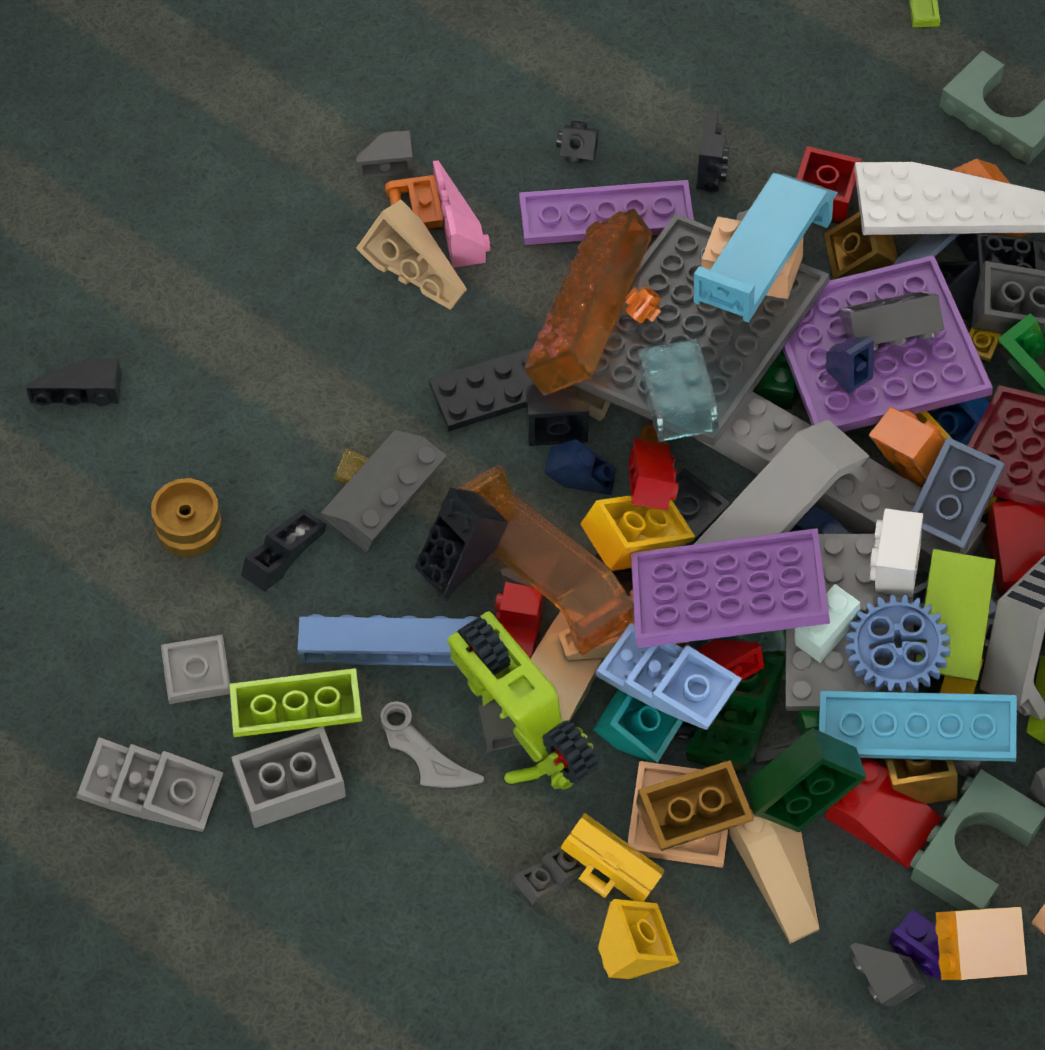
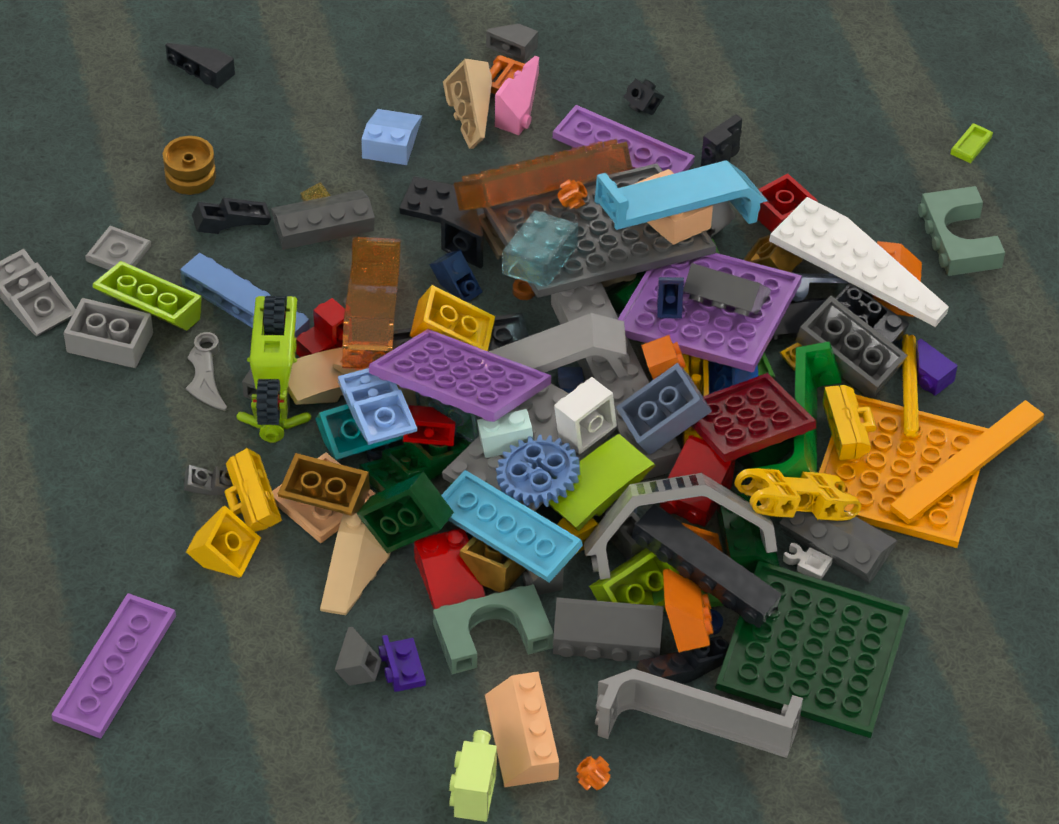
camera: 35 degrees right, 10 degrees down
(361, 345) = (390, 136): none -> light blue slope
(460, 540) = (335, 264): black slope -> none
(652, 474) = (490, 297): red brick -> none
(981, 943) = (427, 673): brick -> none

